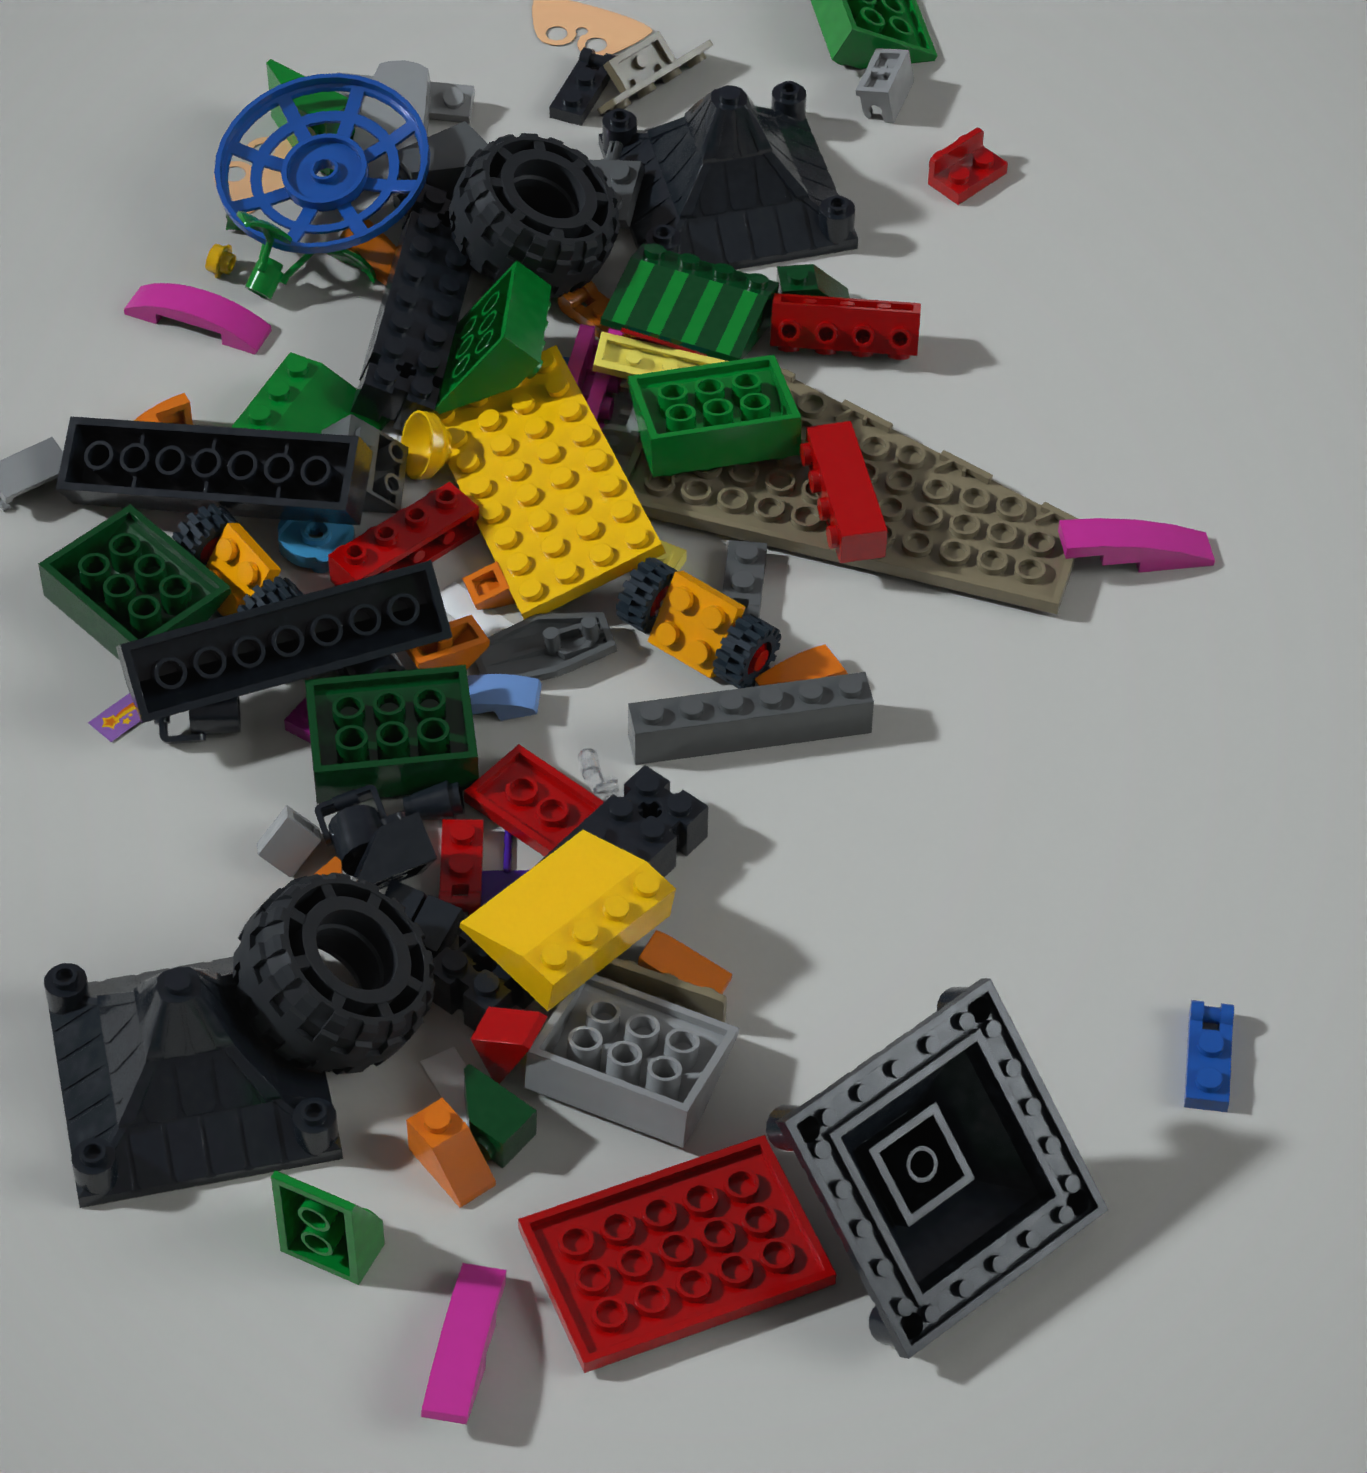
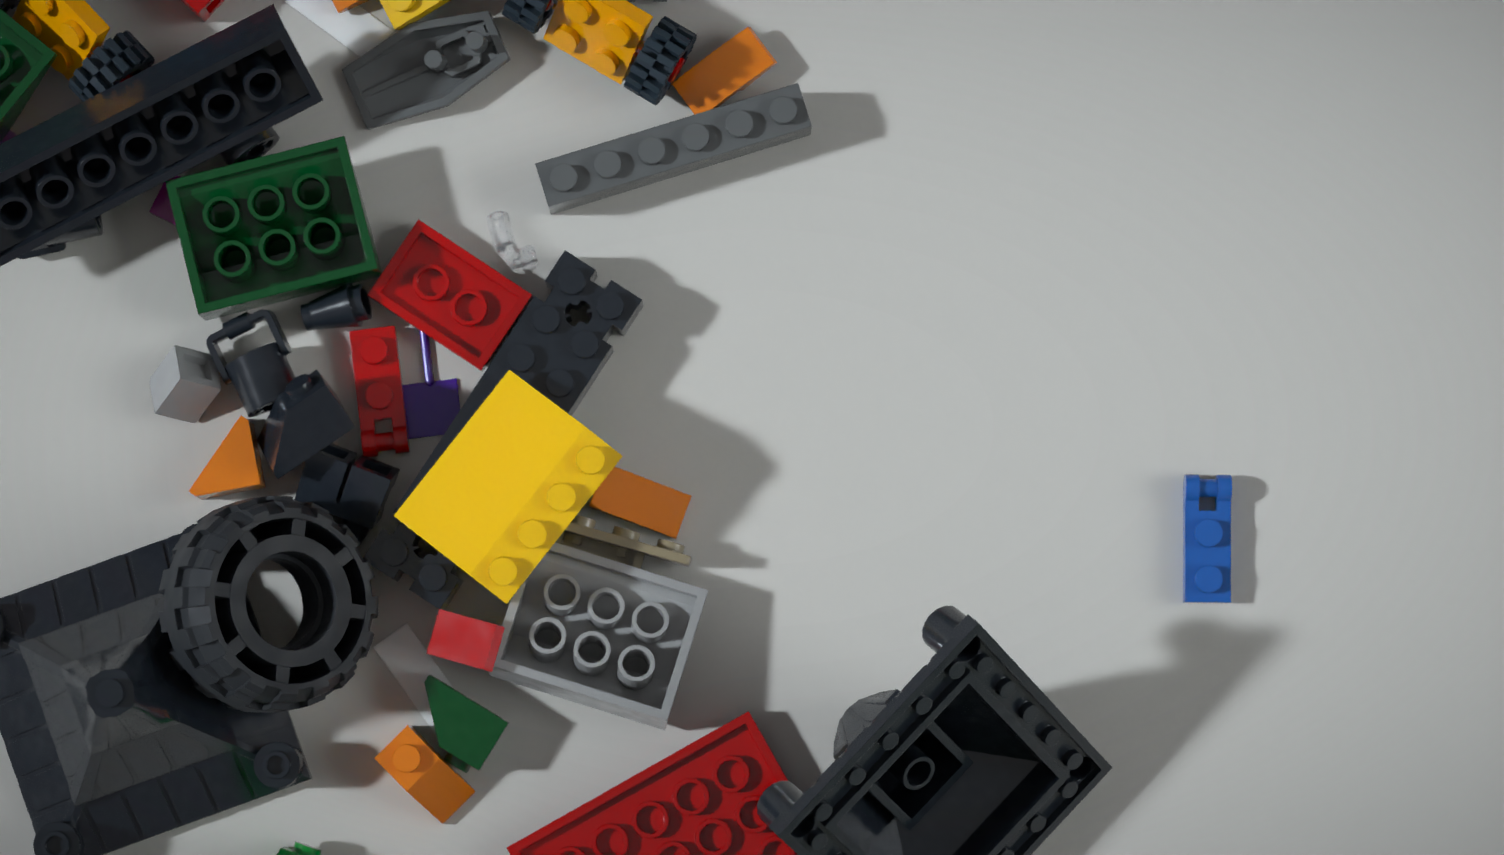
camera: 10 degrees left, 35 degrees up
(462, 649) = (338, 88): orange slope -> none
(505, 694) = (388, 143): medium blue slope -> none

